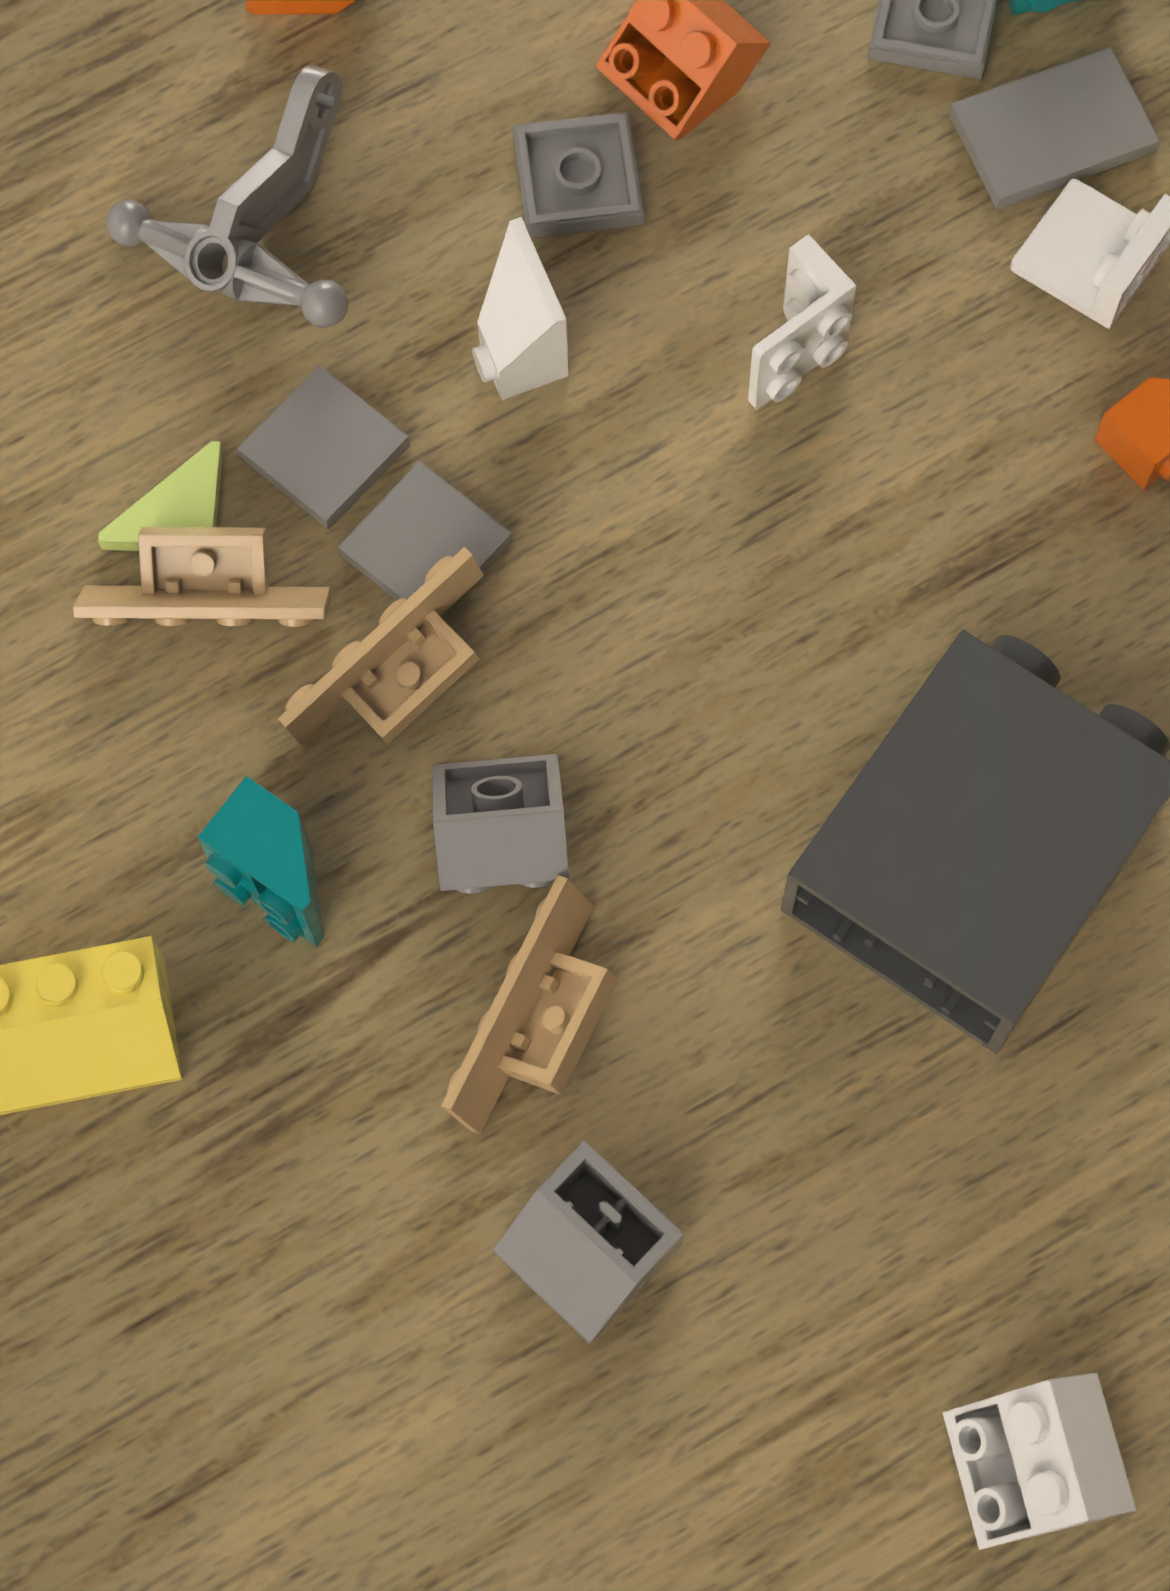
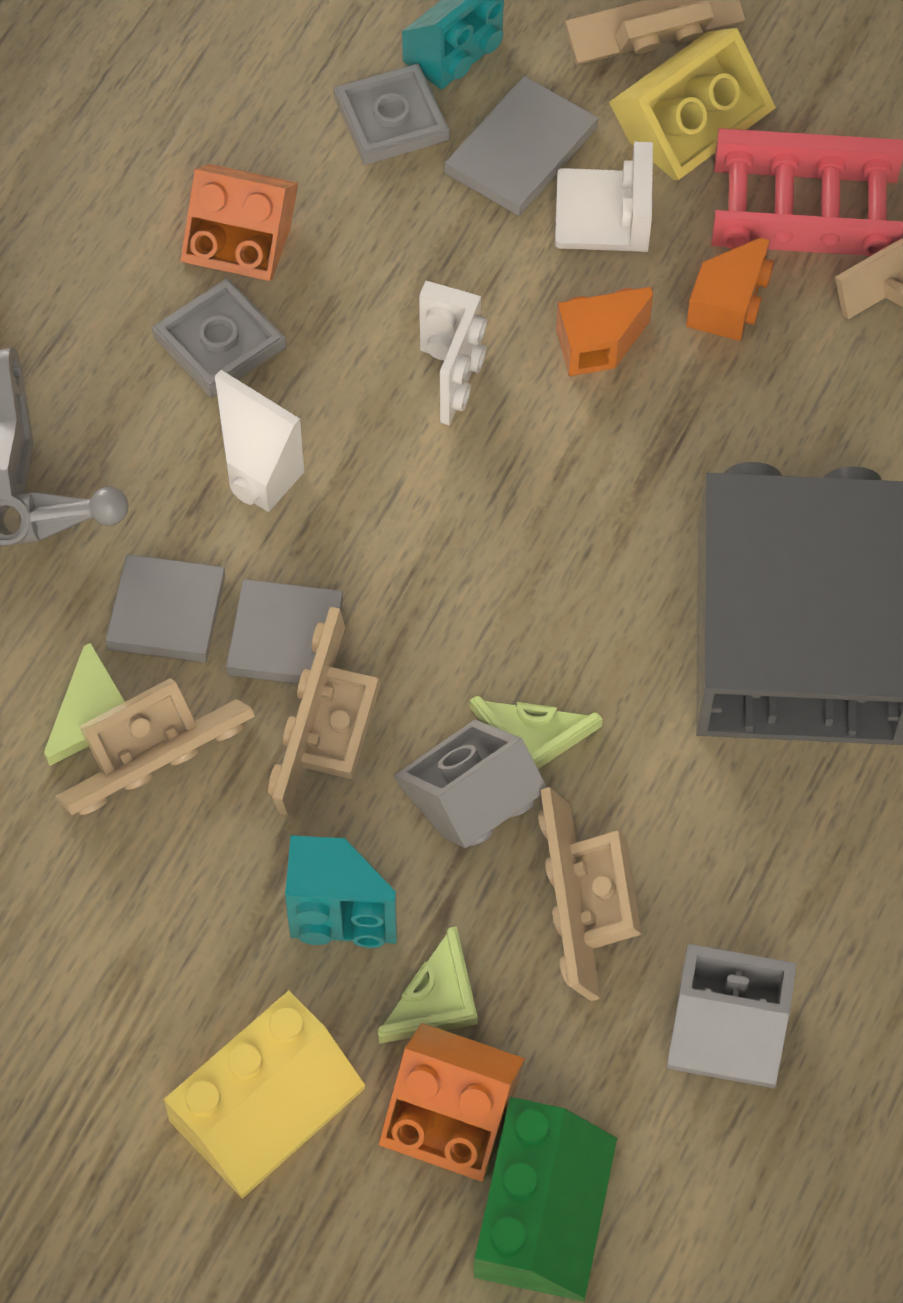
camera: 35 degrees left, 10 degrees down
(248, 1148) = (450, 1101): none -> orange slope
(268, 1313) = (545, 1201): none -> green slope
(316, 1028) = (436, 995): none -> yellowish green tile
(608, 805) = (541, 727): none -> yellowish green tile
(992, 392) = (601, 328): none -> orange slope

